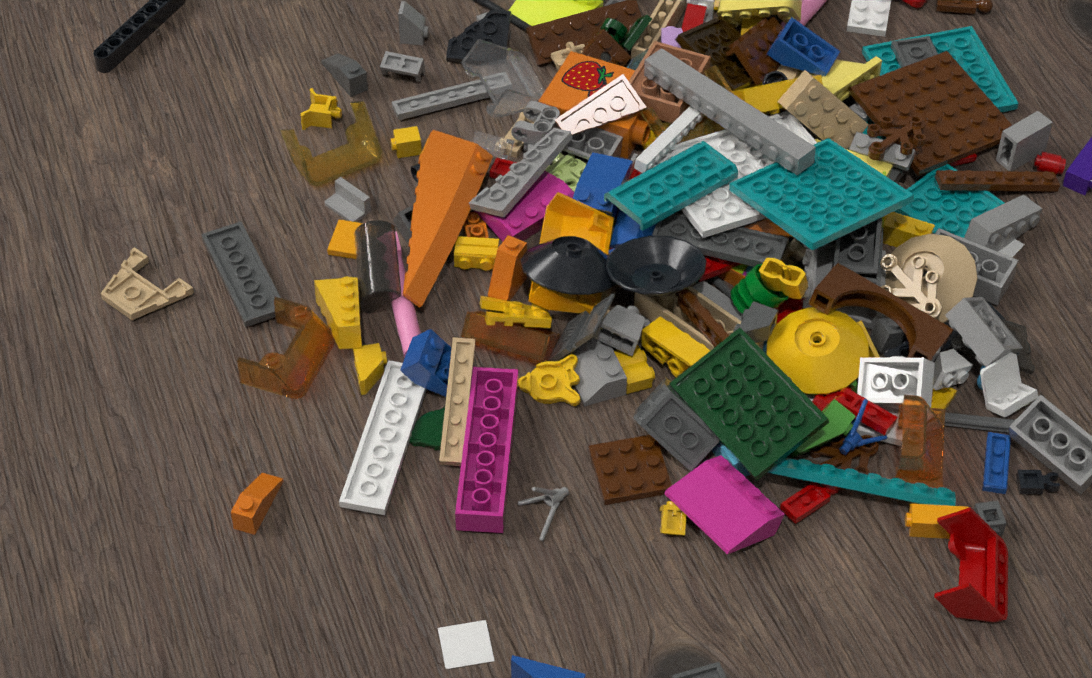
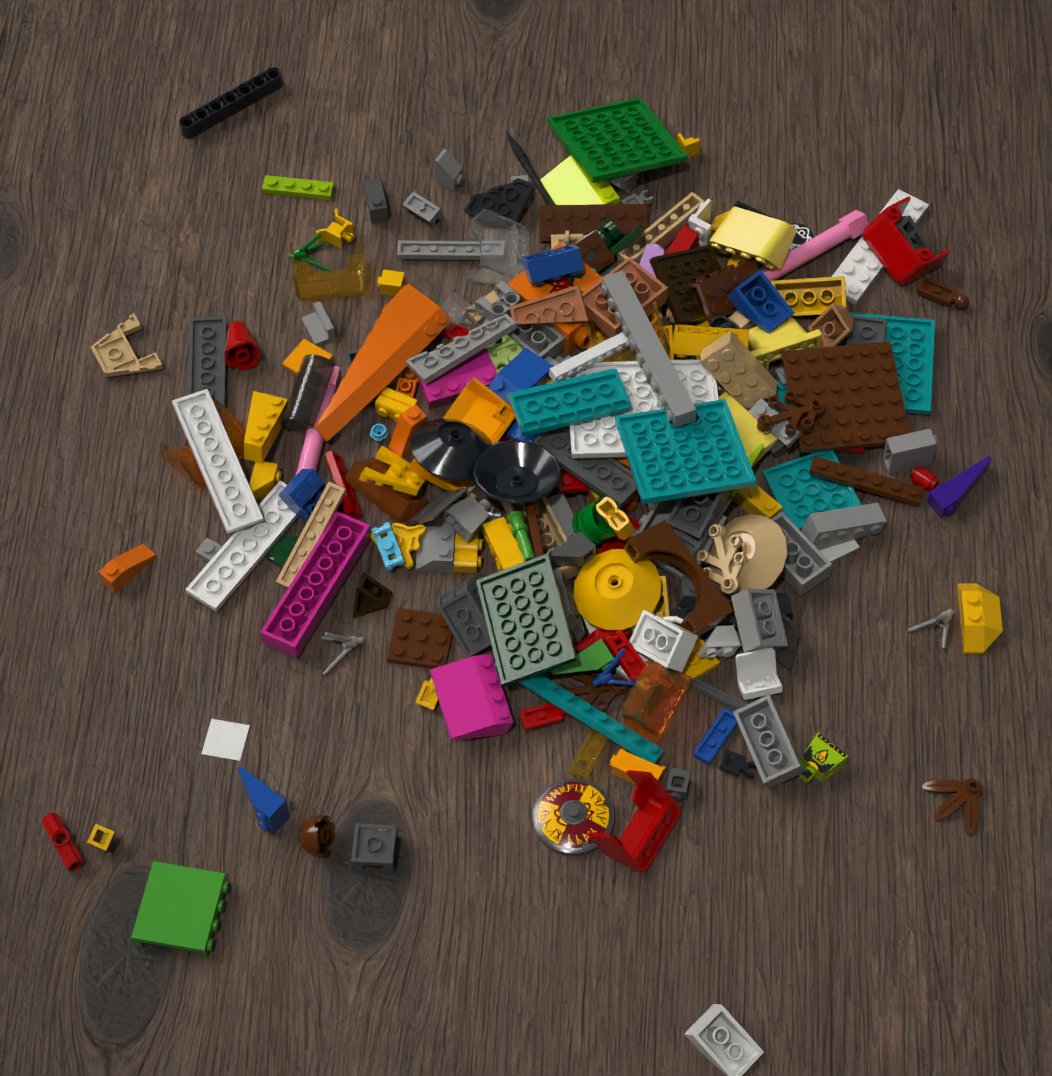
camera: 25 degrees right, 10 degrees up
(254, 84) = (298, 187): none -> lime plate
(276, 245) = (240, 347): none -> red cone
(282, 146) = (303, 254): none -> green plant
(314, 356) = (217, 461): none -> white plate
(342, 455) = (208, 549): none -> light grey plate
(440, 327) = (338, 469): none -> red plate
(470, 284) = (379, 428): none -> medium azure plate
(545, 387) = (388, 546): none -> medium azure plate
(552, 443) = (370, 596): none -> dark brown slope
(579, 69) = (552, 264): none -> blue slope
(687, 323) = (520, 531): none -> bright green pin
(851, 31) = (812, 295): none -> yellow slope
(877, 522) = (588, 754): none -> clear yellow plate
(886, 49) = (833, 324): none -> medium nougat slope
(896, 592) = (569, 812): none -> dish

